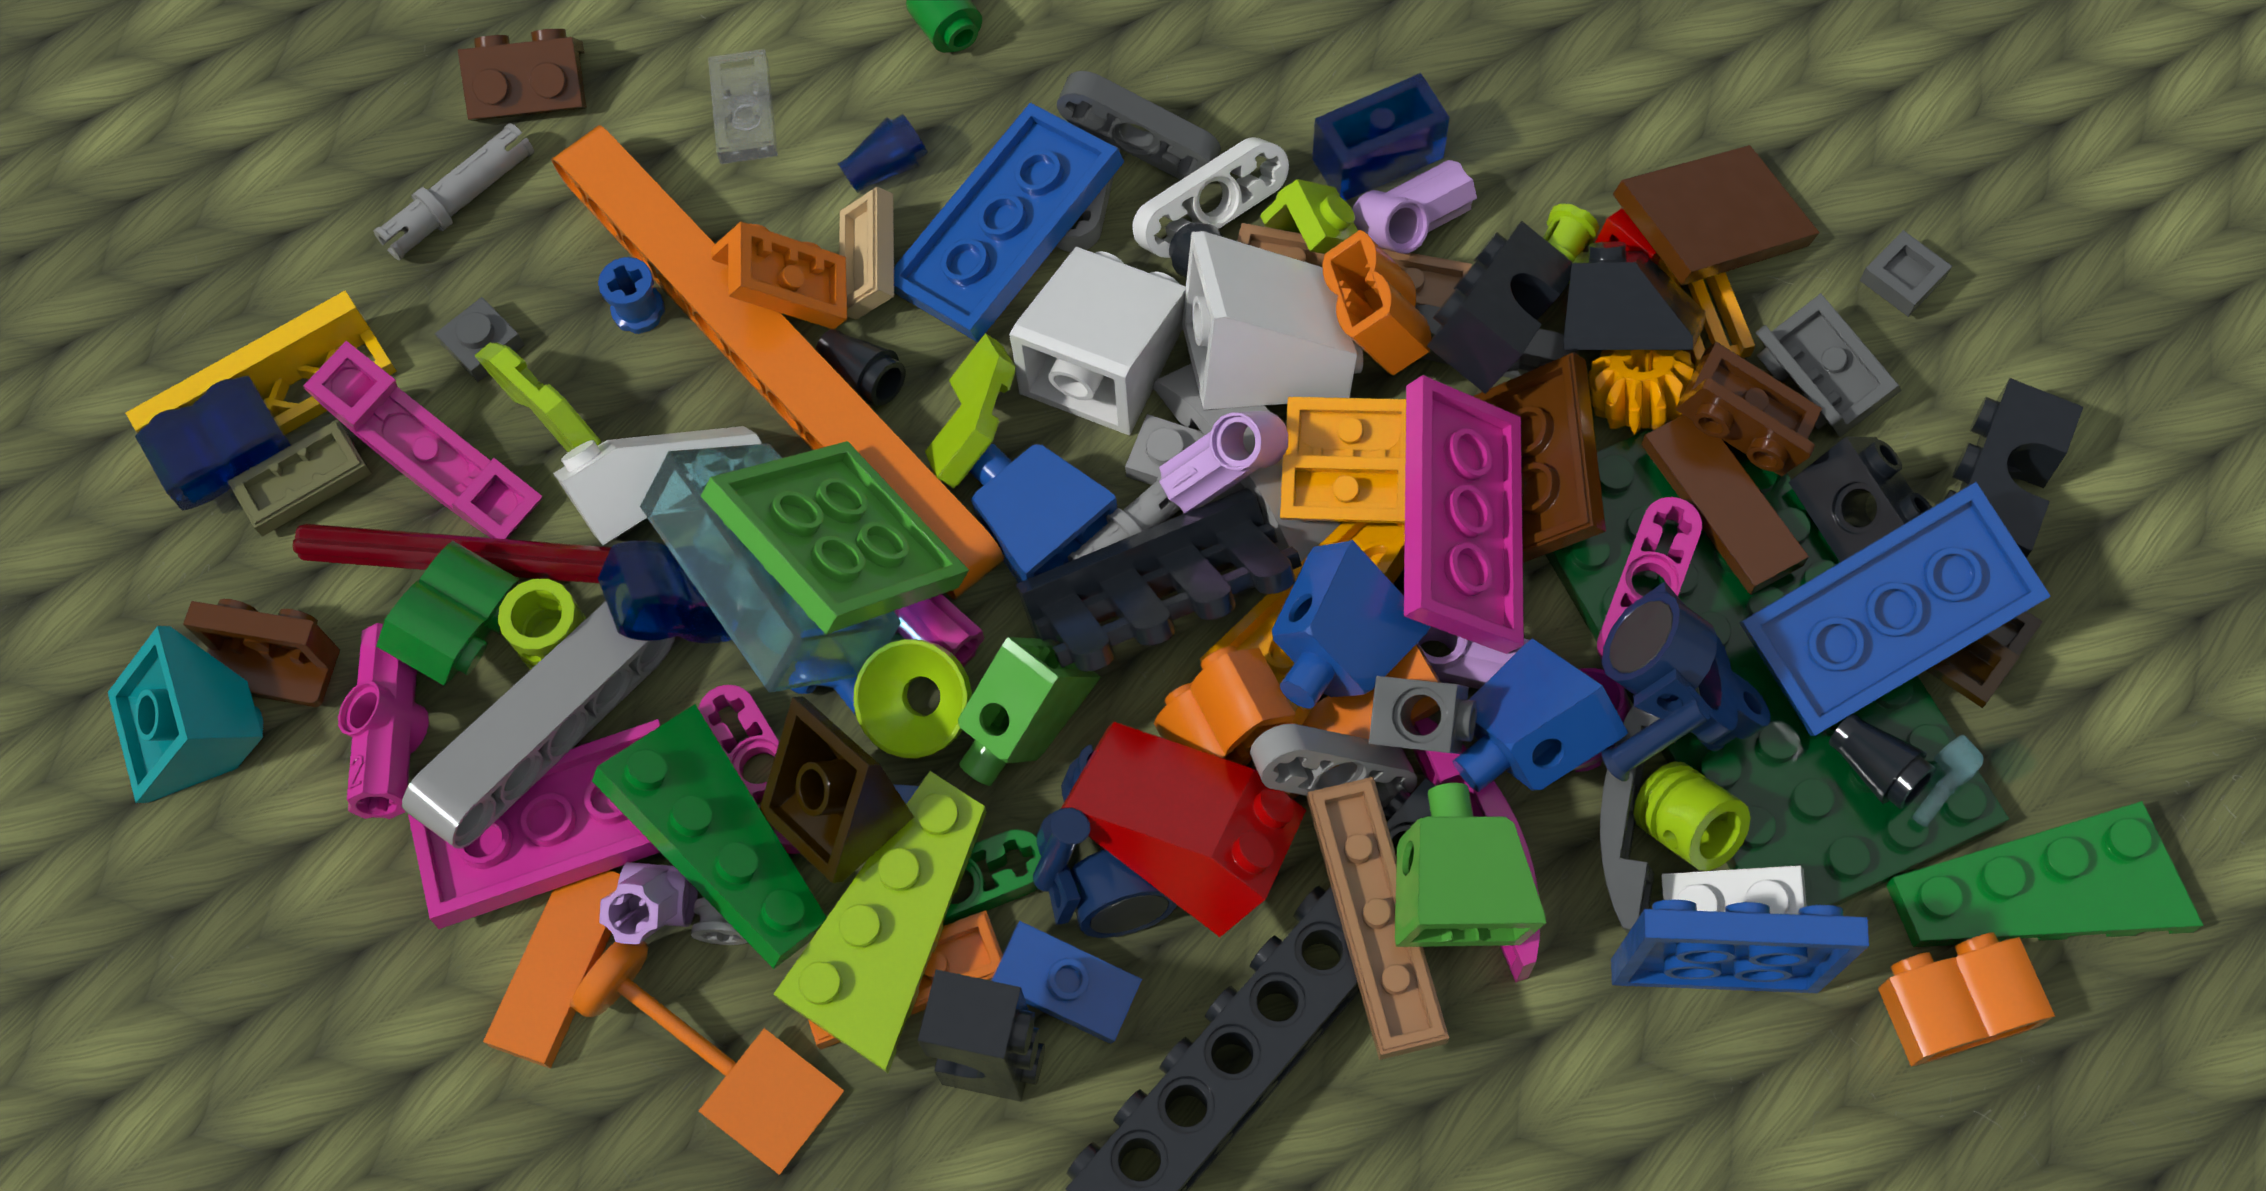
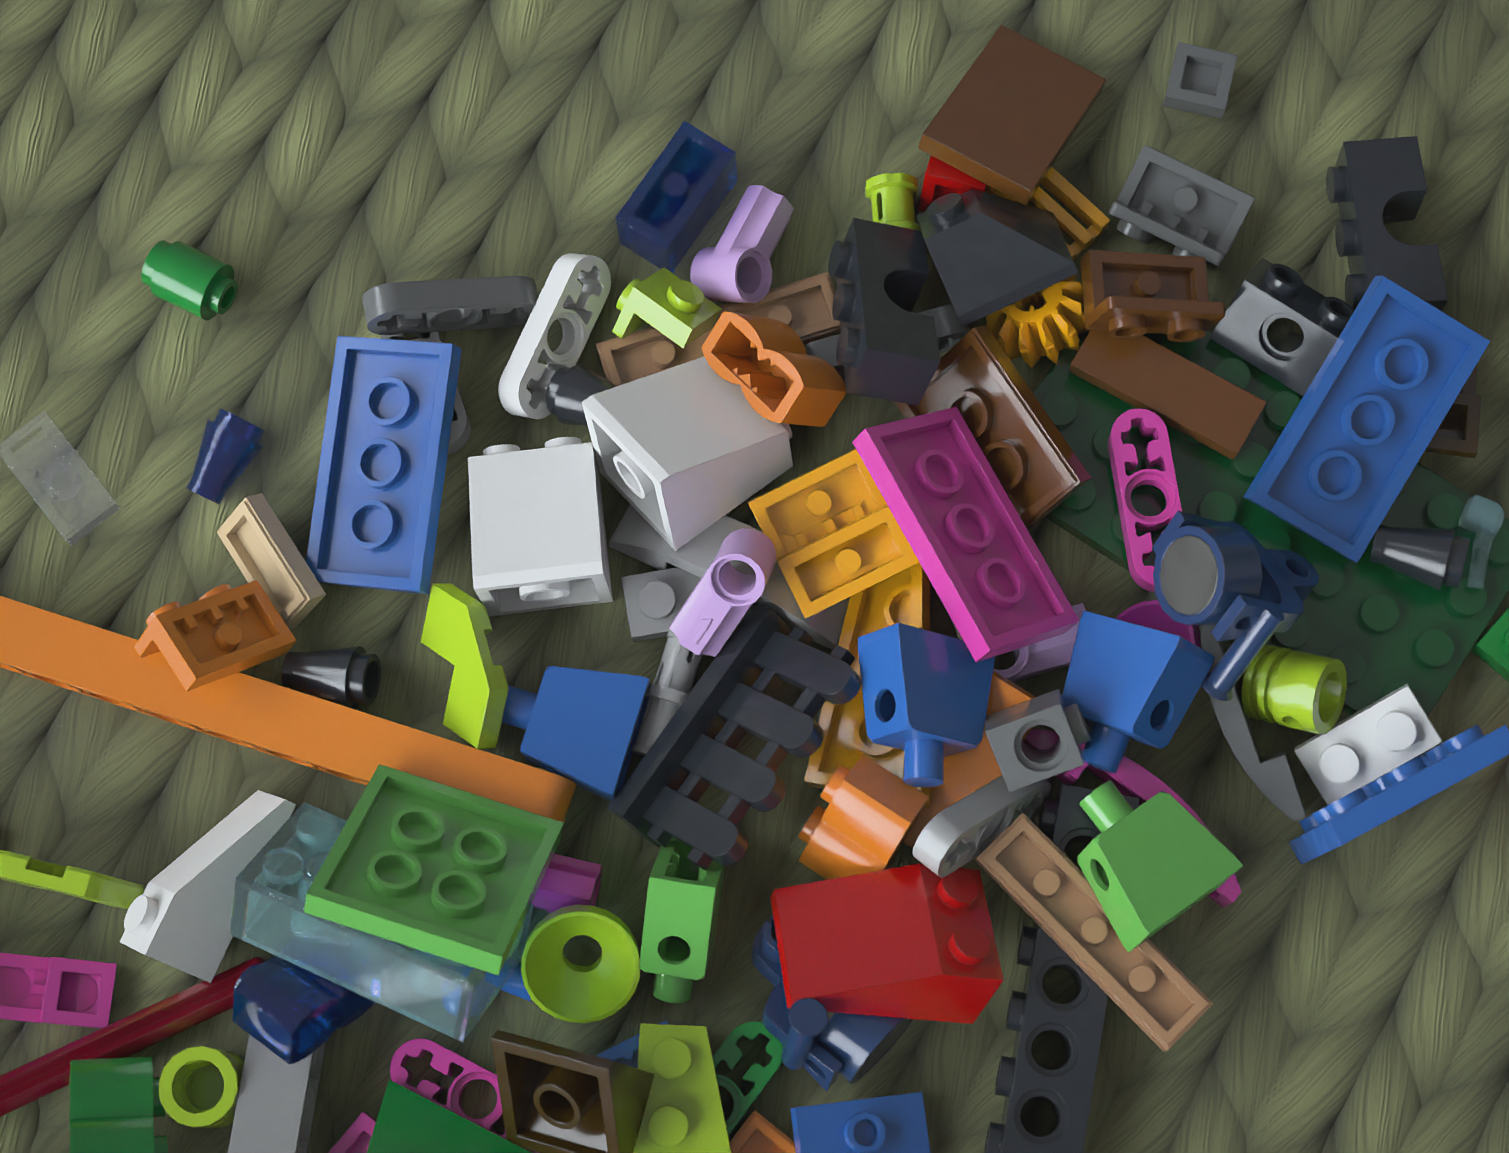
camera: 30 degrees left, 10 degrees up
(630, 292) = (57, 716): blue bush -> none

